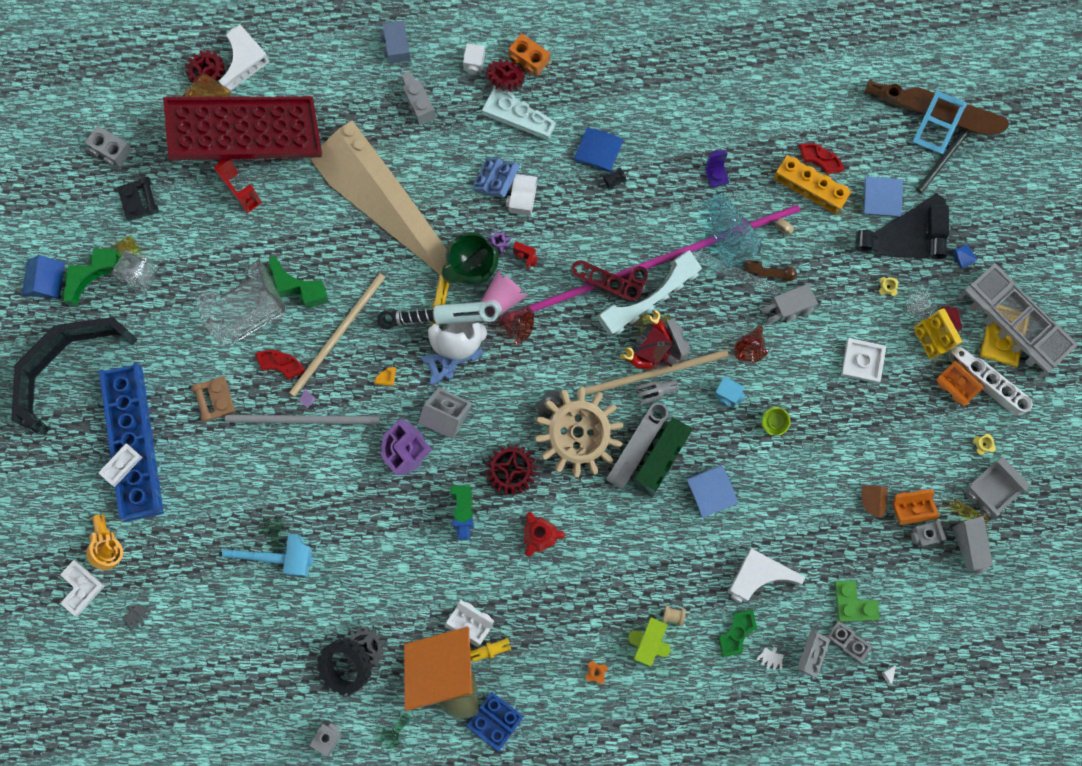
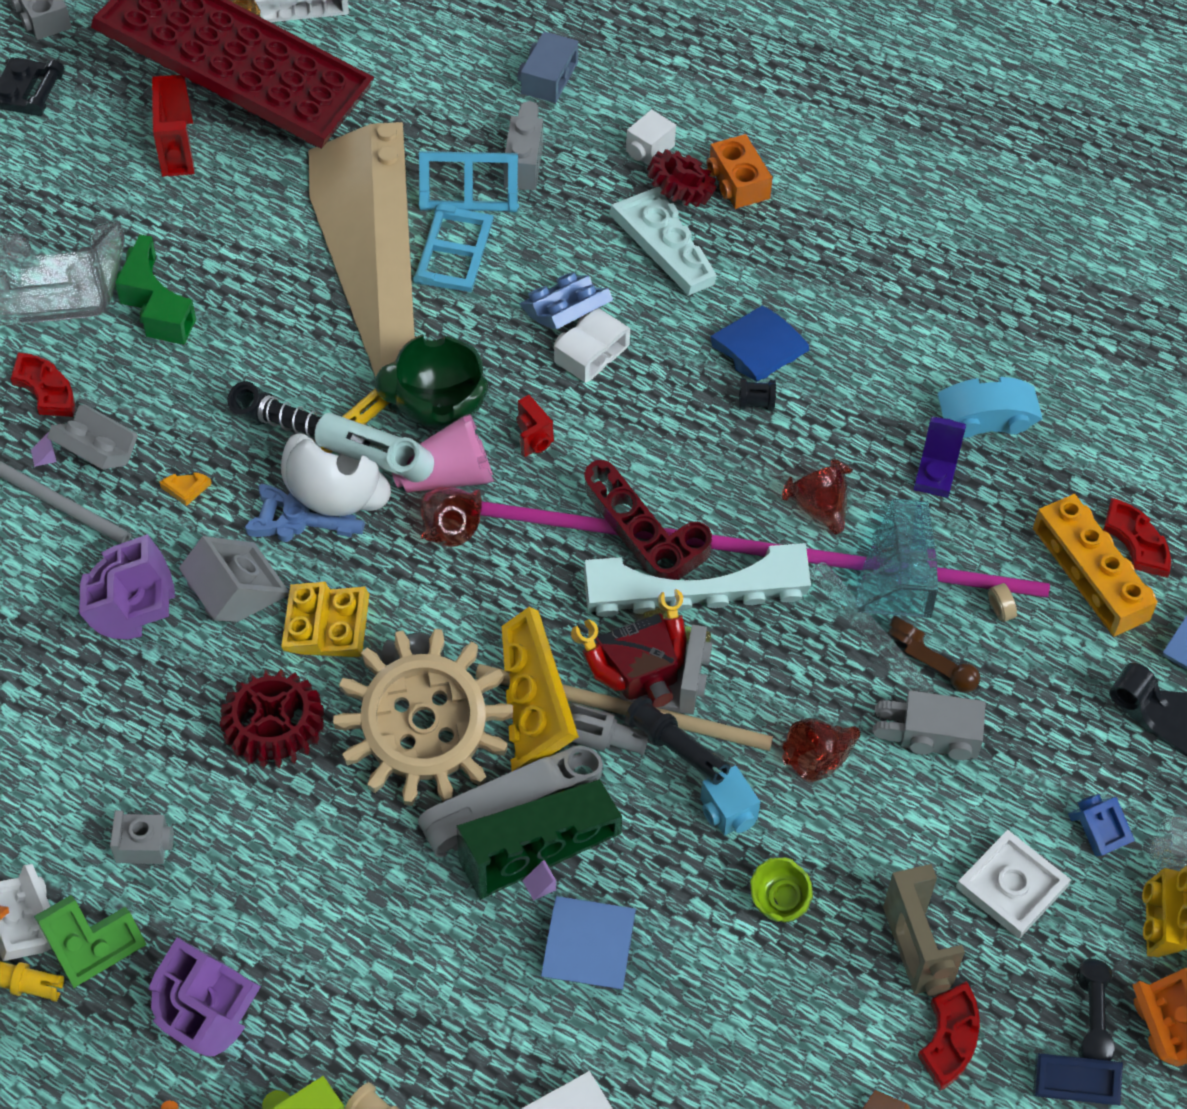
camera: 30 degrees right, 20 degrees down
(328, 379) = (95, 438): none -> light grey bracket
(337, 334) = (171, 387): tan piece -> none
(400, 125) = (468, 159): none -> medium azure window
(406, 155) = (433, 244): none -> medium azure window
(463, 511) = (143, 730): green hips -> none
(492, 565) = (142, 849): none -> light grey brick
(498, 407) = (325, 620): none -> yellow slope
(499, 237) = (504, 389): medium lavender gear -> none
(511, 620) = (86, 949): none -> bright green plate
(539, 534) = (243, 844): red rock -> none
(574, 614) = (199, 999): none -> medium lavender brick
(617, 391) = (539, 703): none -> yellow wing
(673, 475) = (540, 881): none -> lavender piece
(676, 216) = (822, 495): none -> clear red hat
(684, 378) = (664, 730): none -> black pin
(718, 130) = (991, 406): none -> medium azure brick
(830, 399) = (905, 910): none -> dark tan window
(877, 441) = (954, 1036): none -> red tile
(883, 310) = (1103, 823): none -> blue bracket
(892, 282) = (1145, 784): light yellow plate -> none
(935, 413) = (1095, 978): none -> black bar
(935, 432) = (1078, 1079): none -> dark blue tile

